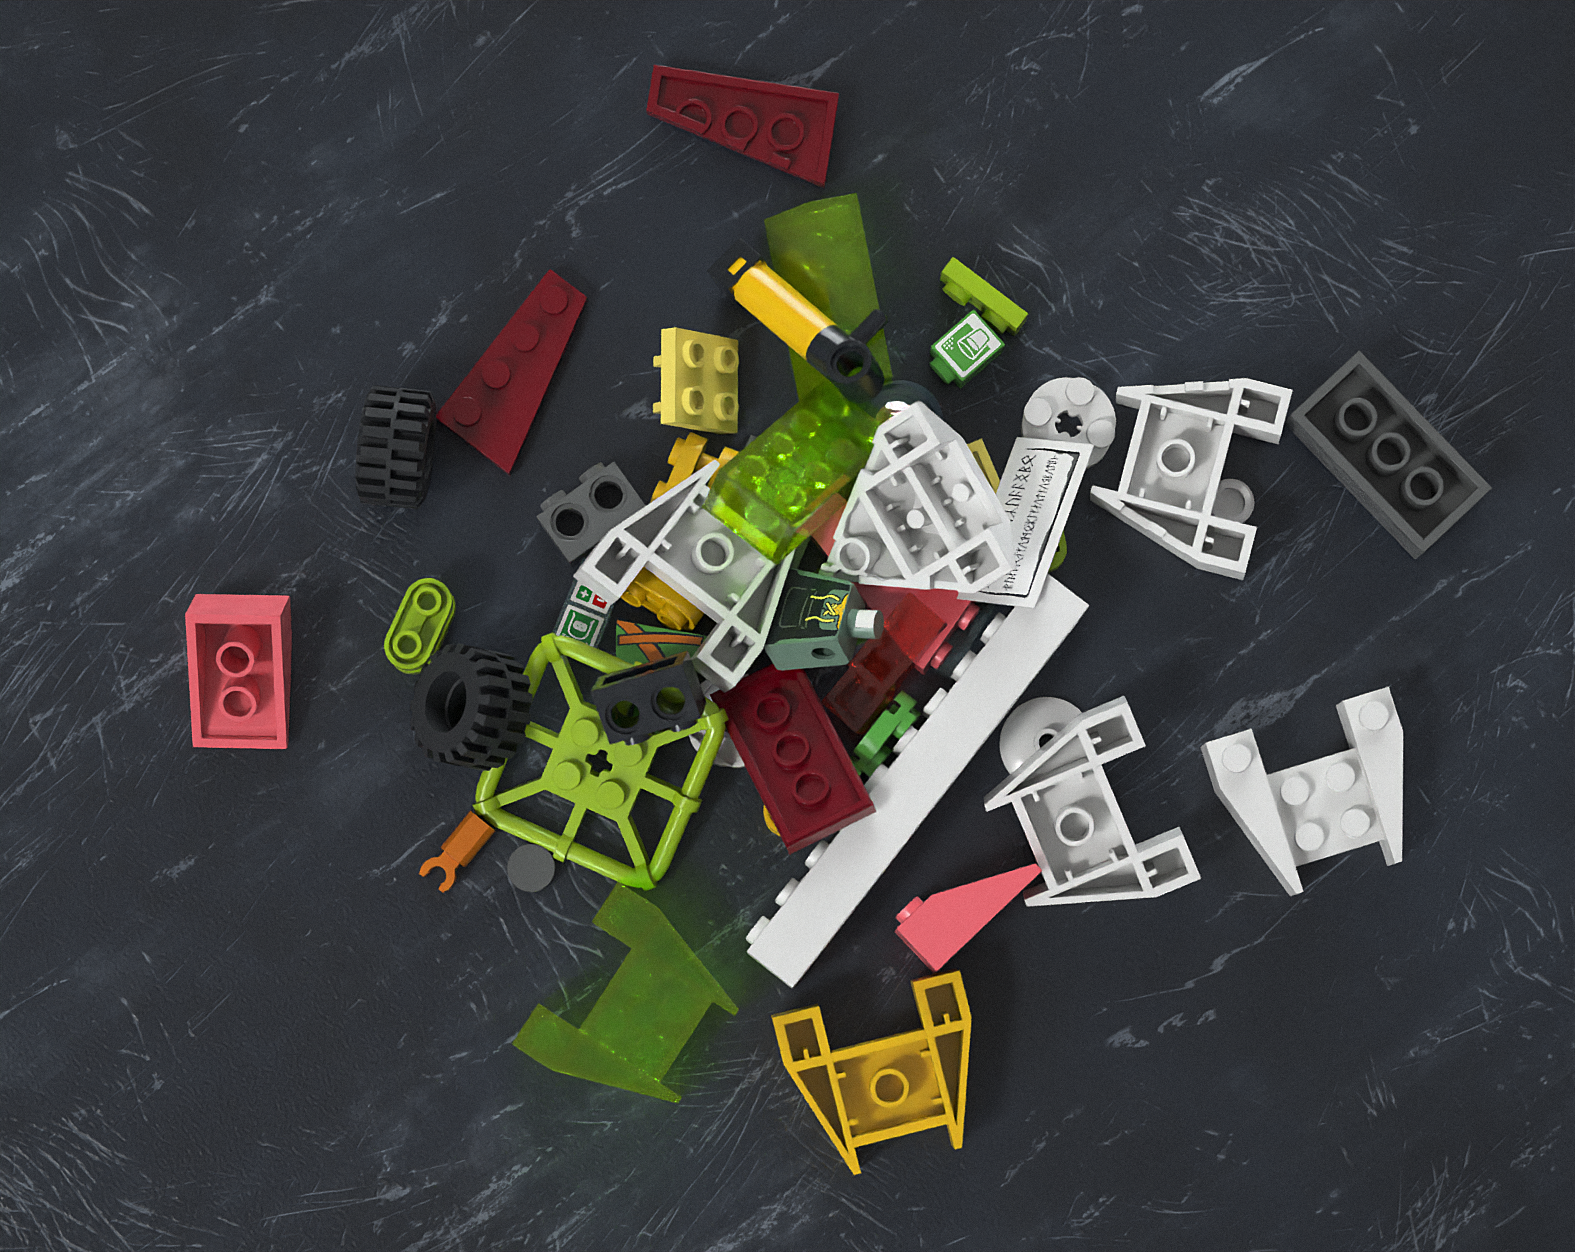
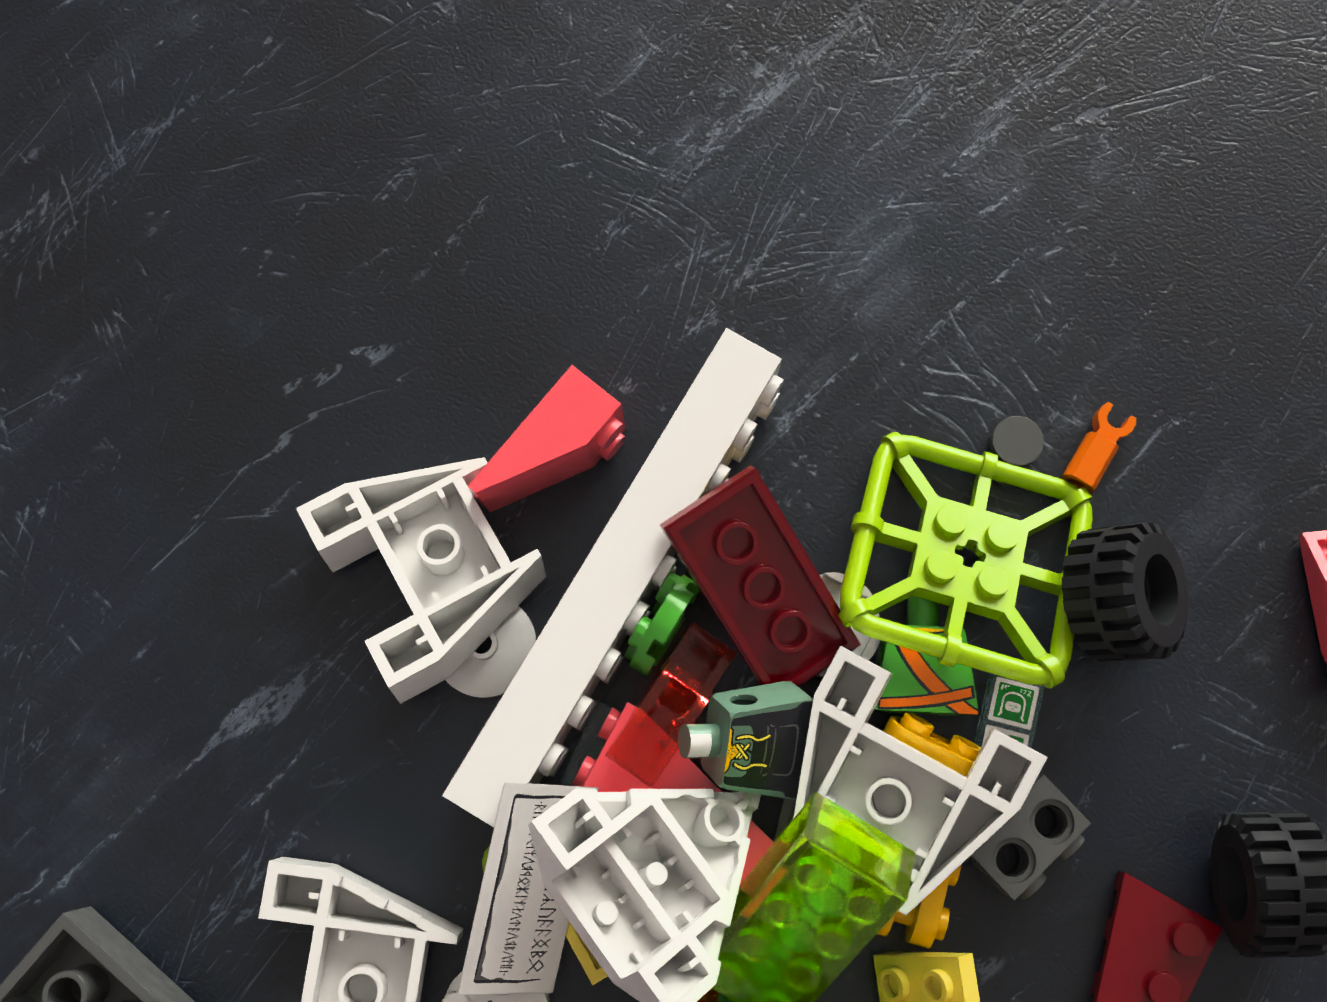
camera: 175 degrees right, 5 degrees down
(420, 625) = (1193, 683): lime brick -> none
(641, 1012) = (878, 301): clear neon green wedge -> none
(643, 688) = (942, 628): black brick -> none
(887, 1082) = (615, 263): yellow wedge -> none
(1233, 501) = (293, 947): white tile -> none
(1321, 803) = (172, 619): white wedge -> none

